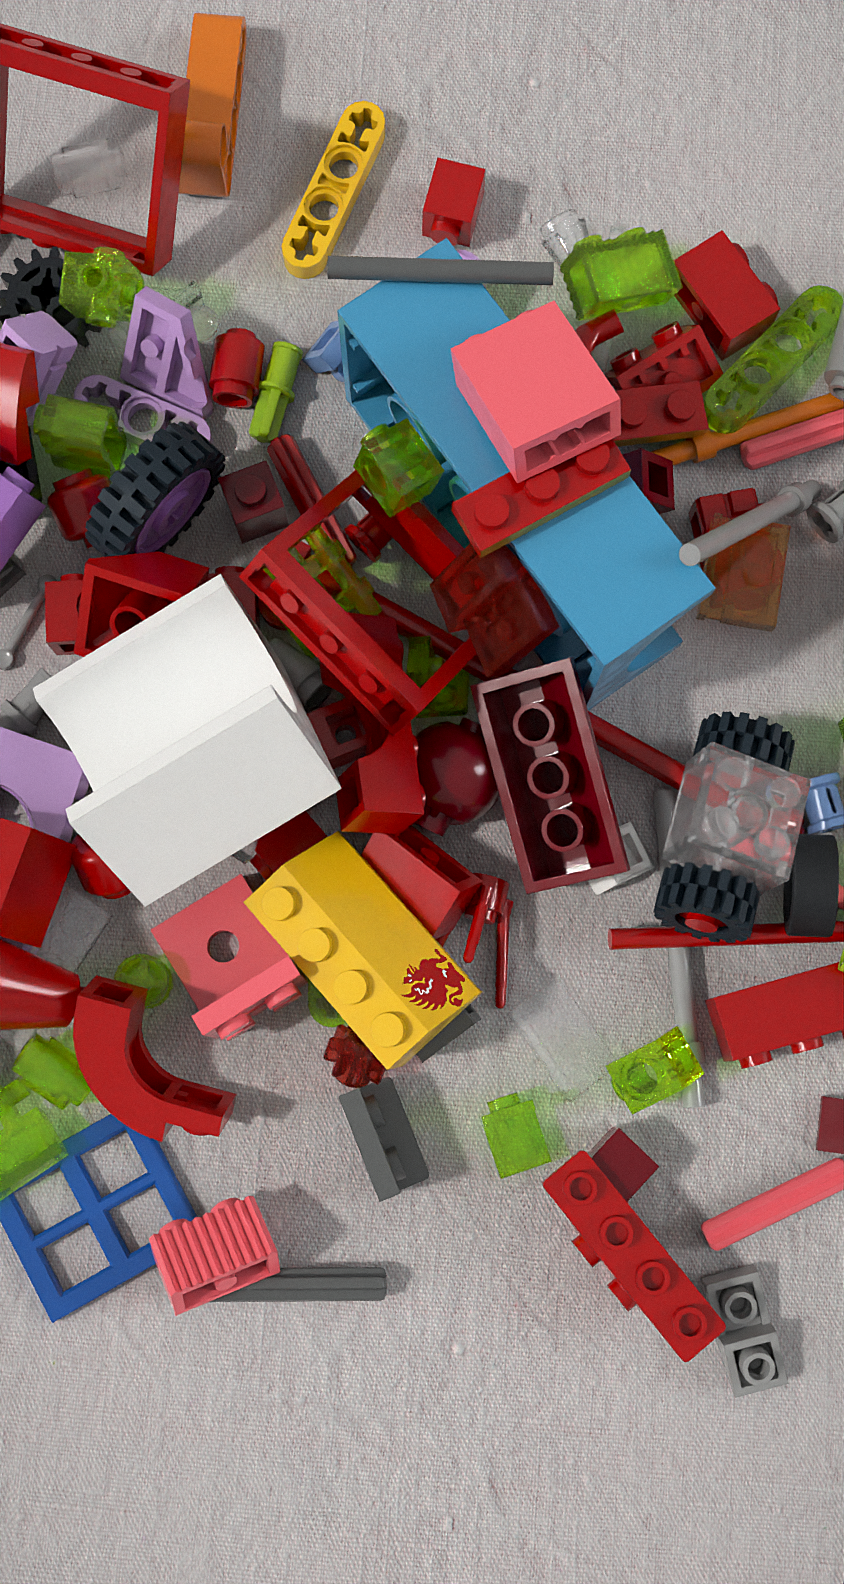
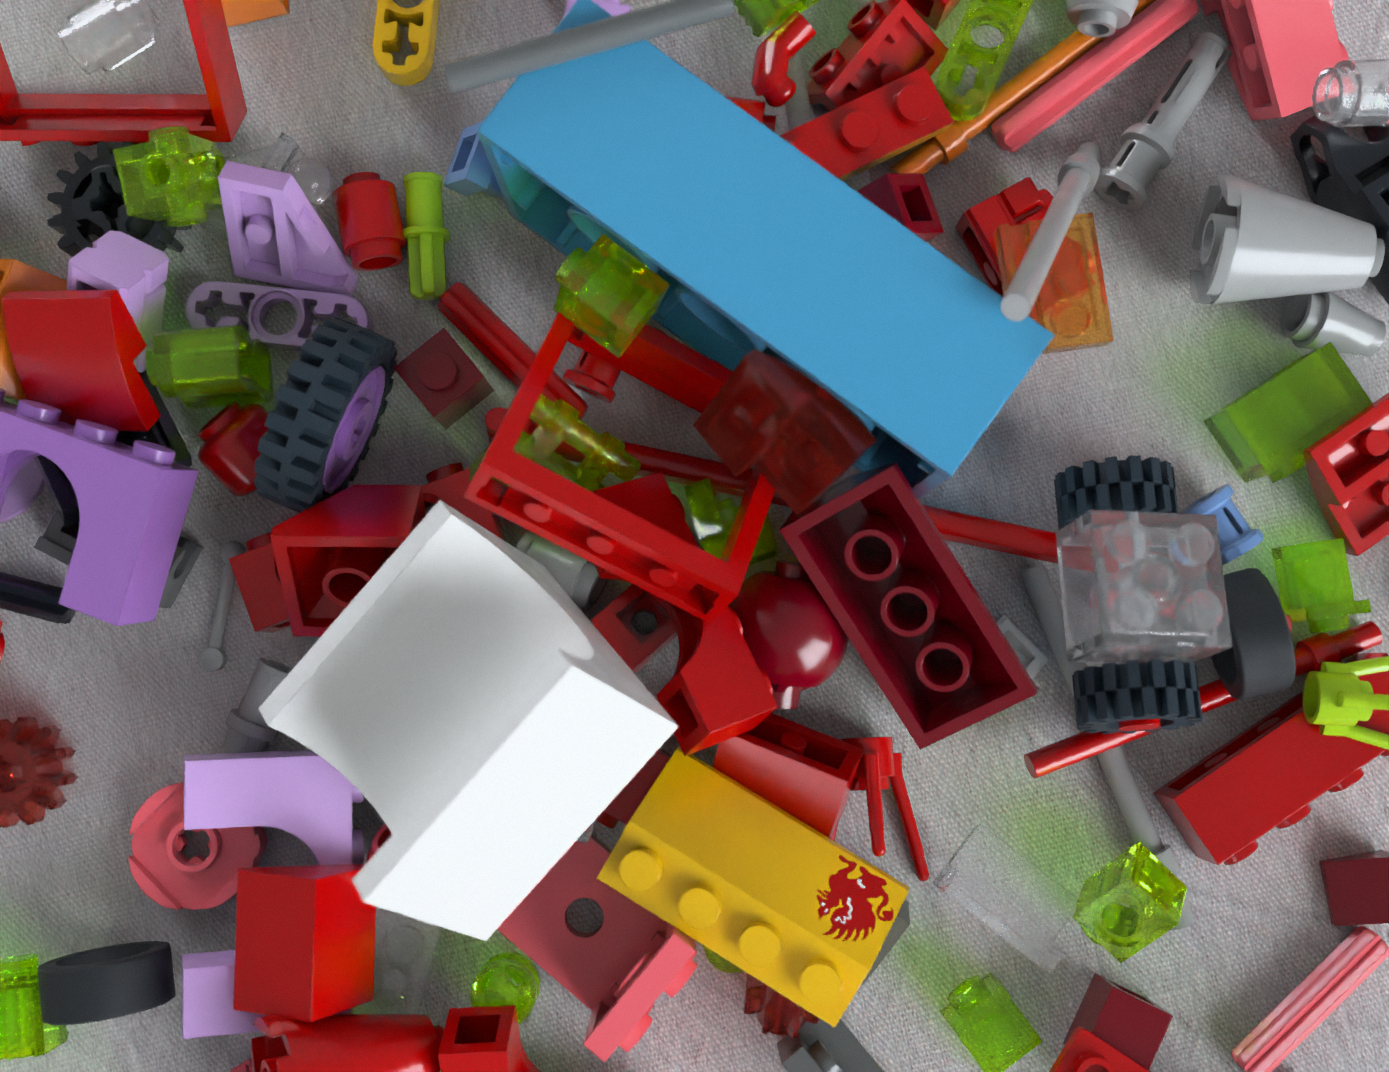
camera: 20 degrees left, 5 degrees up
(511, 509) = (804, 281): red plate -> none
(536, 391) = (763, 159): coral brick -> none

